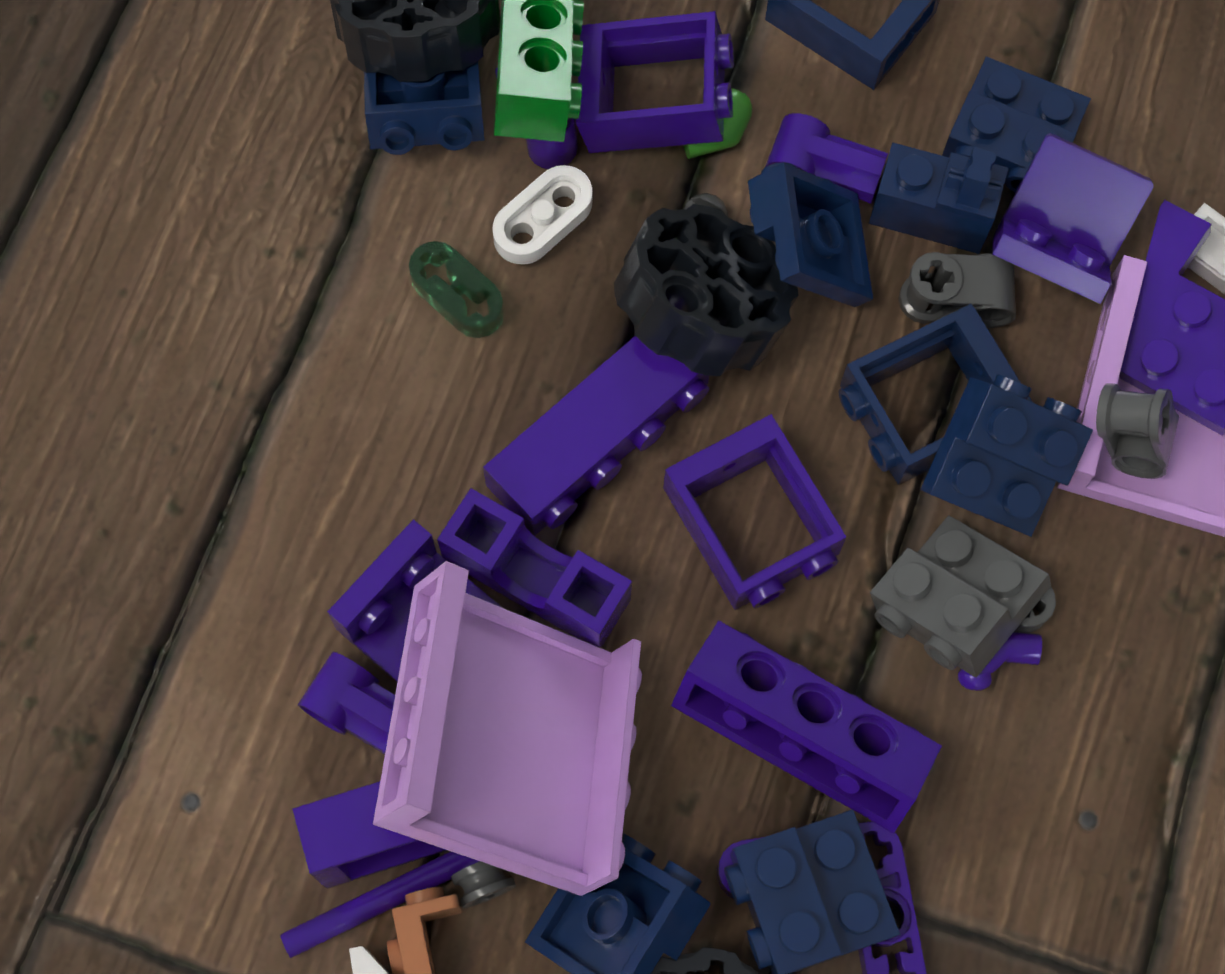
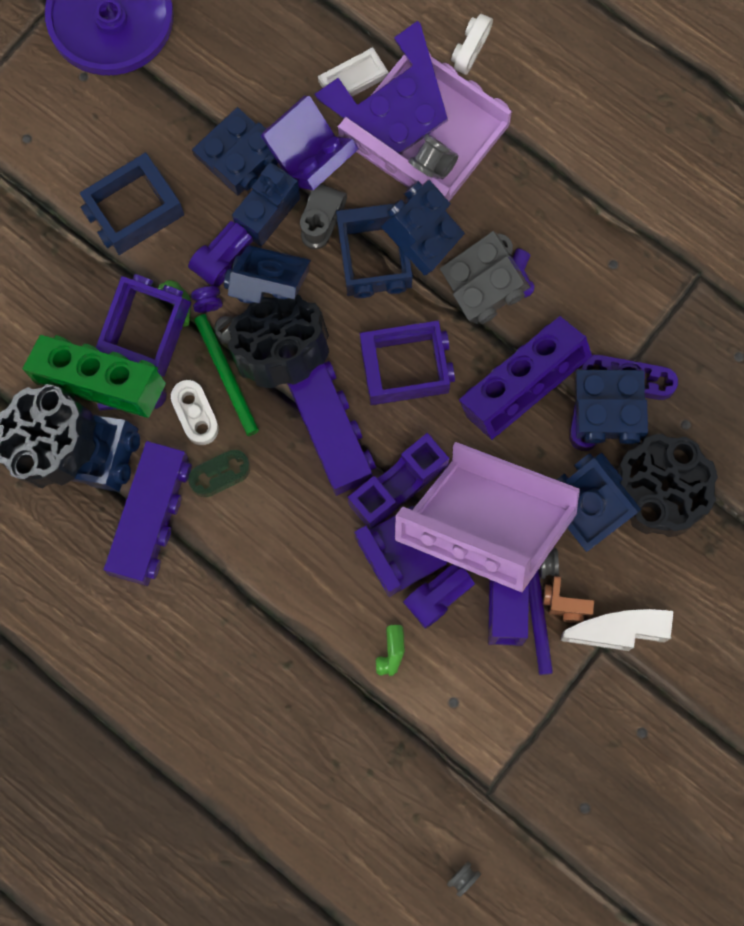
camera: 65 degrees left, 5 degrees up
(245, 669) = (395, 650): none -> bright green arm
(346, 201) = (147, 514): none -> dark purple brick
(614, 253) = (226, 375): none -> green bar
(738, 164) = (206, 299): none -> dark purple bush

